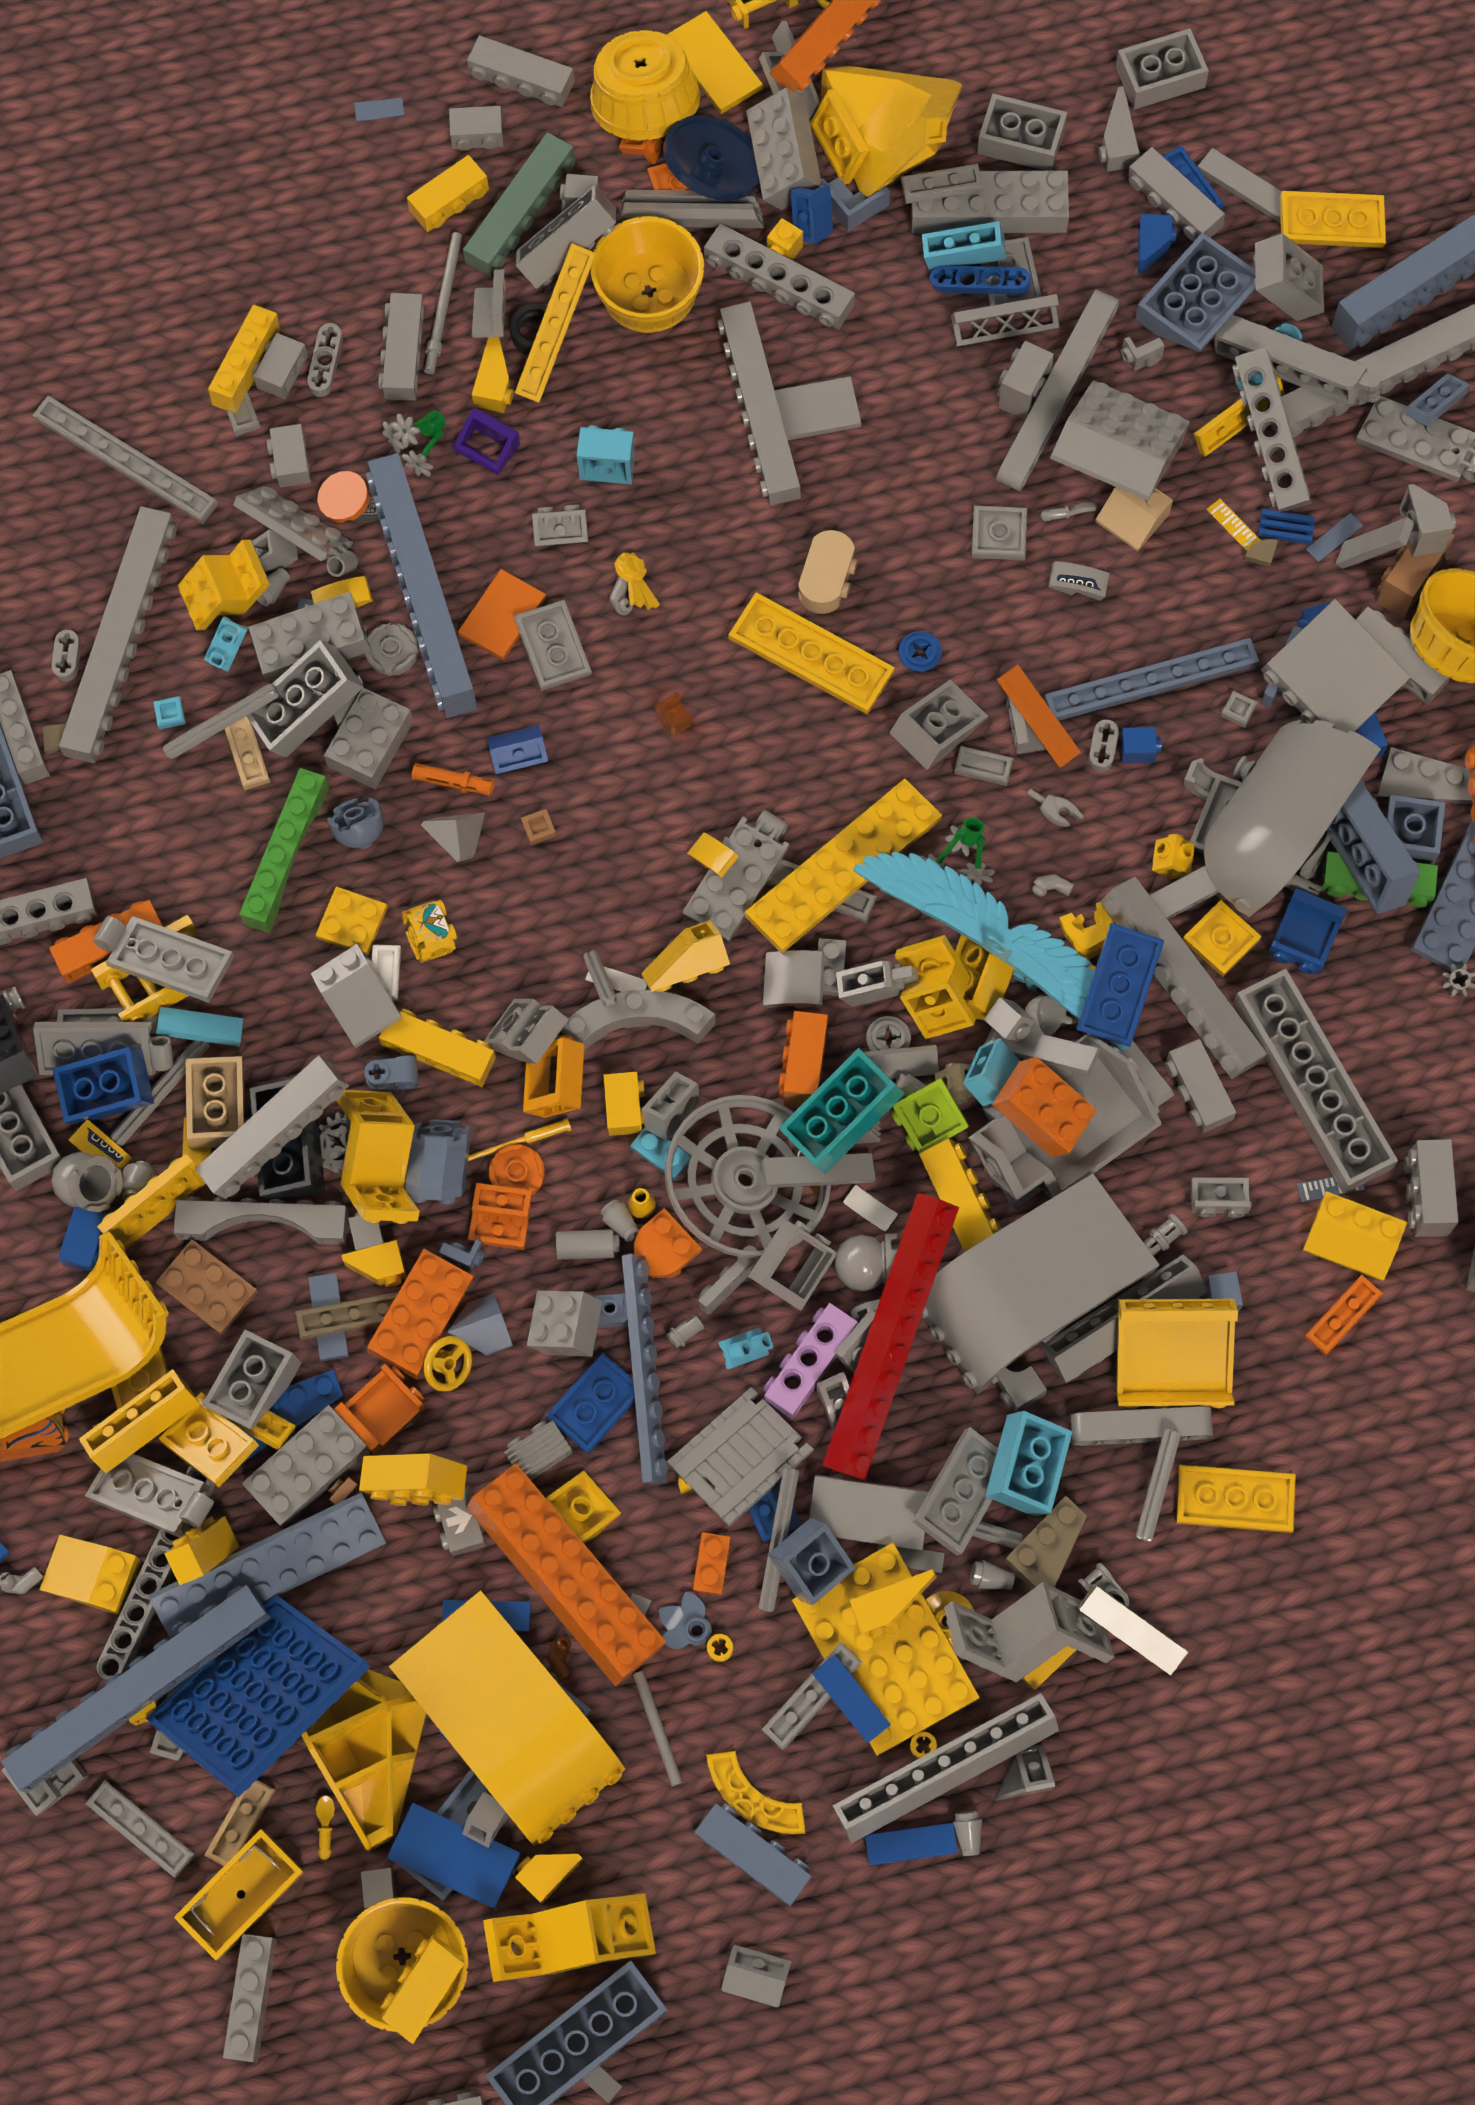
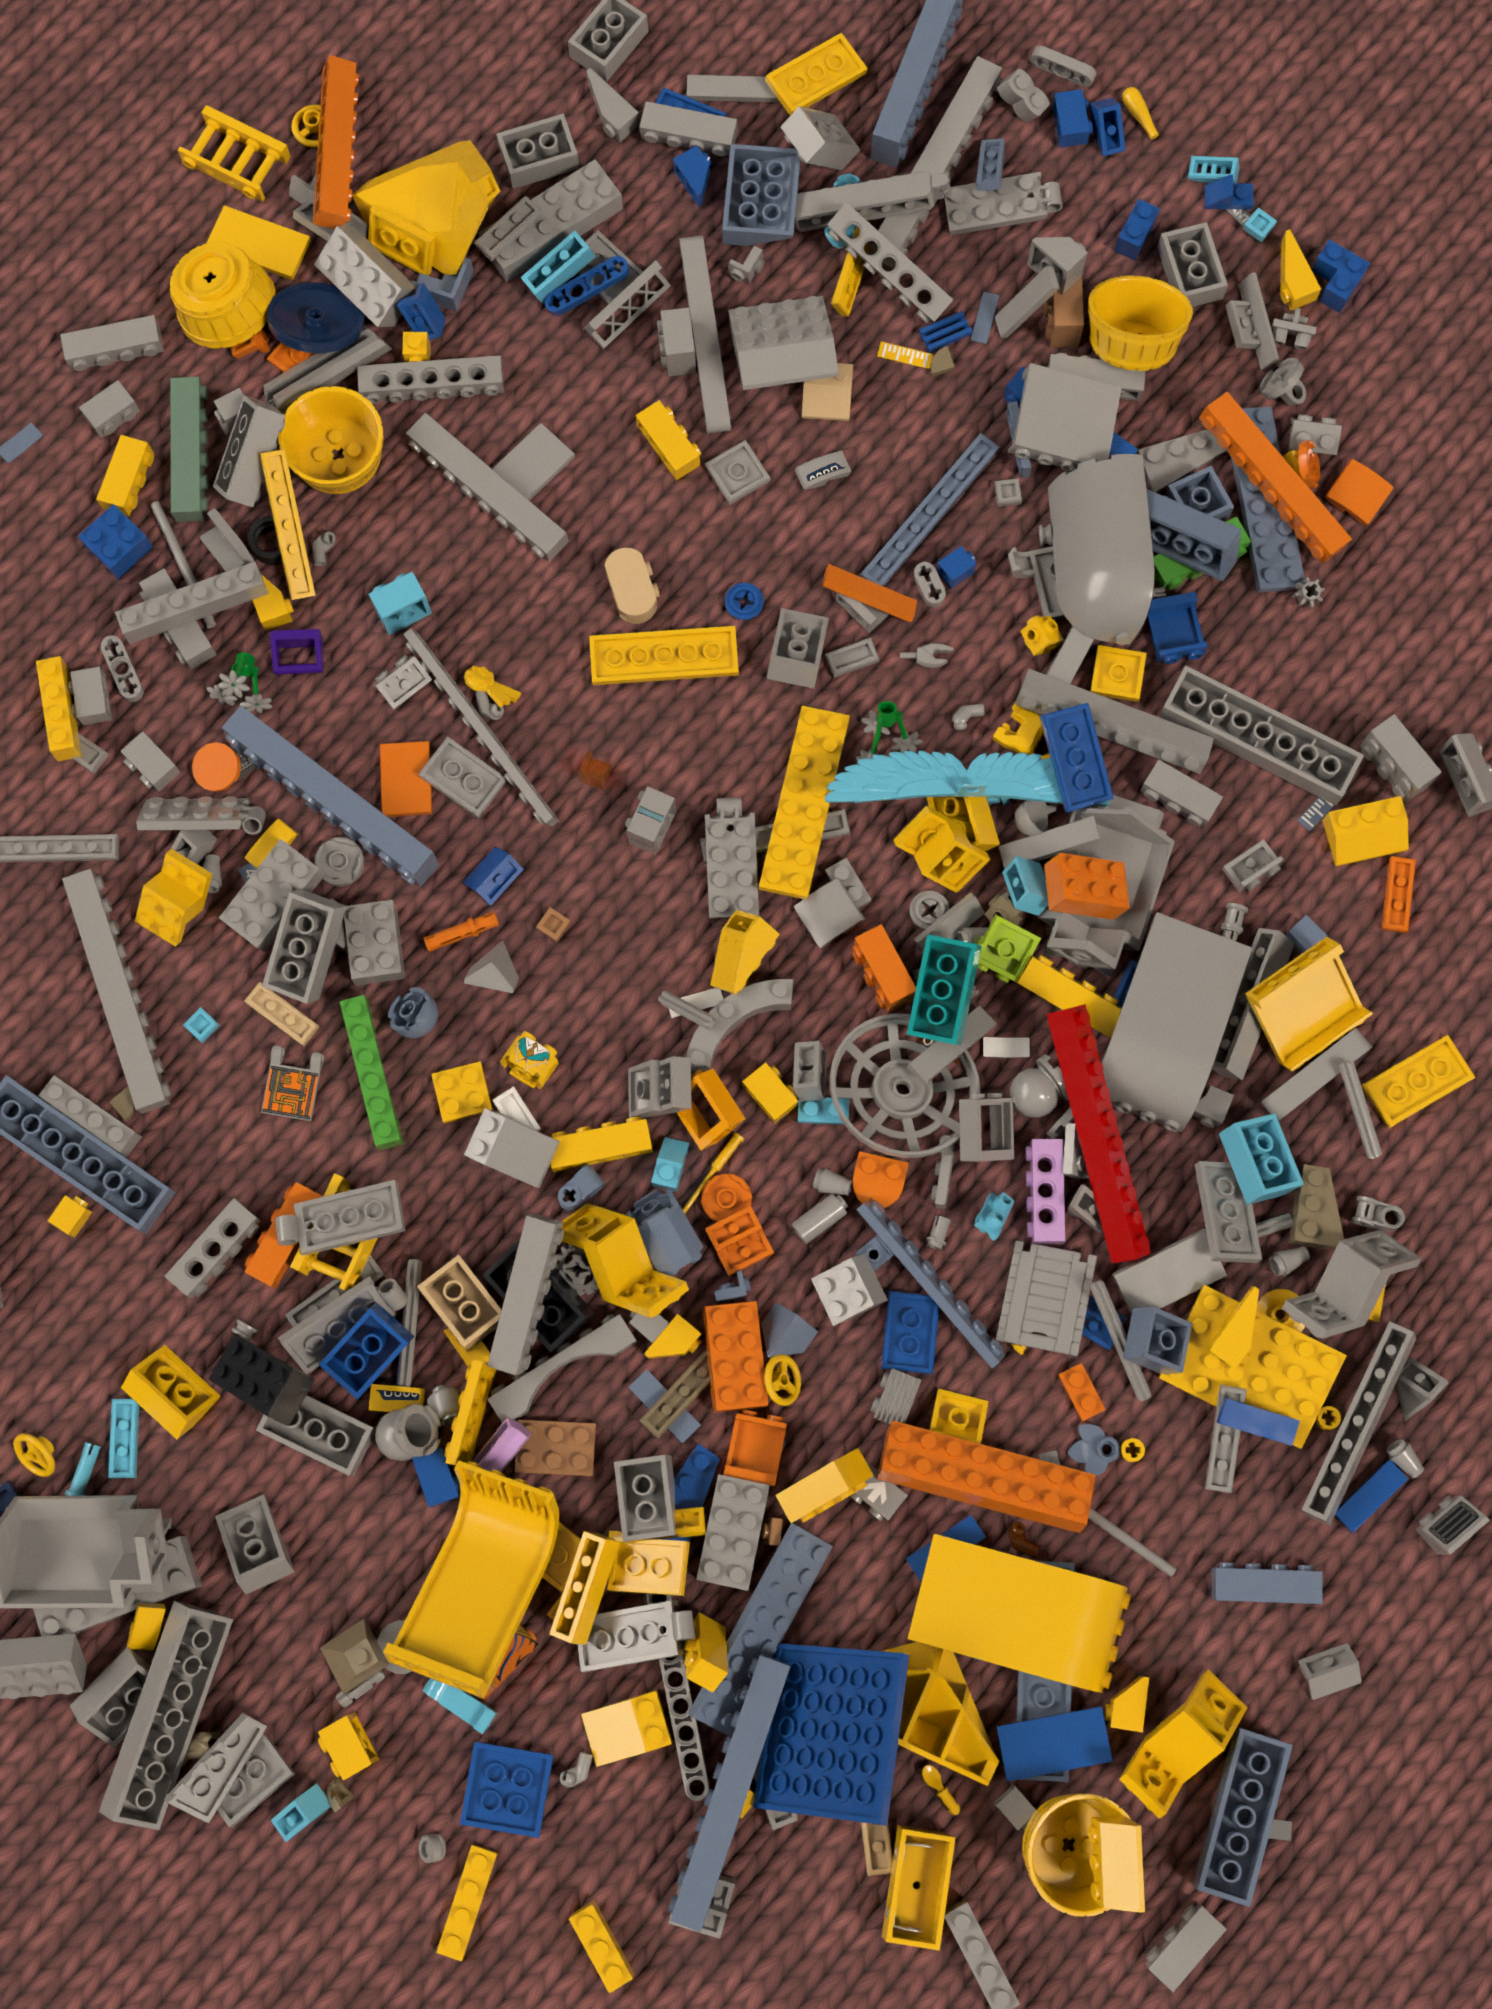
camera: 35 degrees left, 5 degrees up
(61, 655) = (91, 1030): light grey beam -> none
(140, 1829) = (804, 1890): light grey tile -> none
(160, 1251) = (502, 1446): none -> lavender piece
(199, 1026) = (405, 1253): medium azure tile -> none
(205, 819) = (291, 1089): none -> flag
(221, 721) = (250, 1005): light grey axle -> none
(225, 644) = (208, 943): medium azure hips -> none
(397, 245) = (115, 541): none -> blue brick
(422, 338) = (191, 602): none -> light grey brick
(484, 1820) = (1061, 1702): light grey brick -> none
(487, 1107) = (670, 1164): none -> medium azure slope
(574, 363) = (321, 546): none -> light grey arm
(600, 620) = (486, 736): none -> light grey plate
(641, 1209) = (837, 1165): yellow cone -> none
(690, 790) = (651, 820): none -> light grey container
(713, 854) = (702, 858): yellow slope -> none
(748, 1802) = (1234, 1548): yellow tile -> none
(874, 982) = (893, 875): light grey hinge -> none
(920, 1559) = (1233, 1280): light grey sticker -> none
(956, 464) = (668, 439): none -> yellow brick
(964, 1919) = (1451, 1524): none -> slope
(1009, 1020) = (1014, 837): light grey brick -> none
(1065, 512) = (777, 424): light grey piece -> none
(1132, 1629) = (1418, 1228): tile -> none

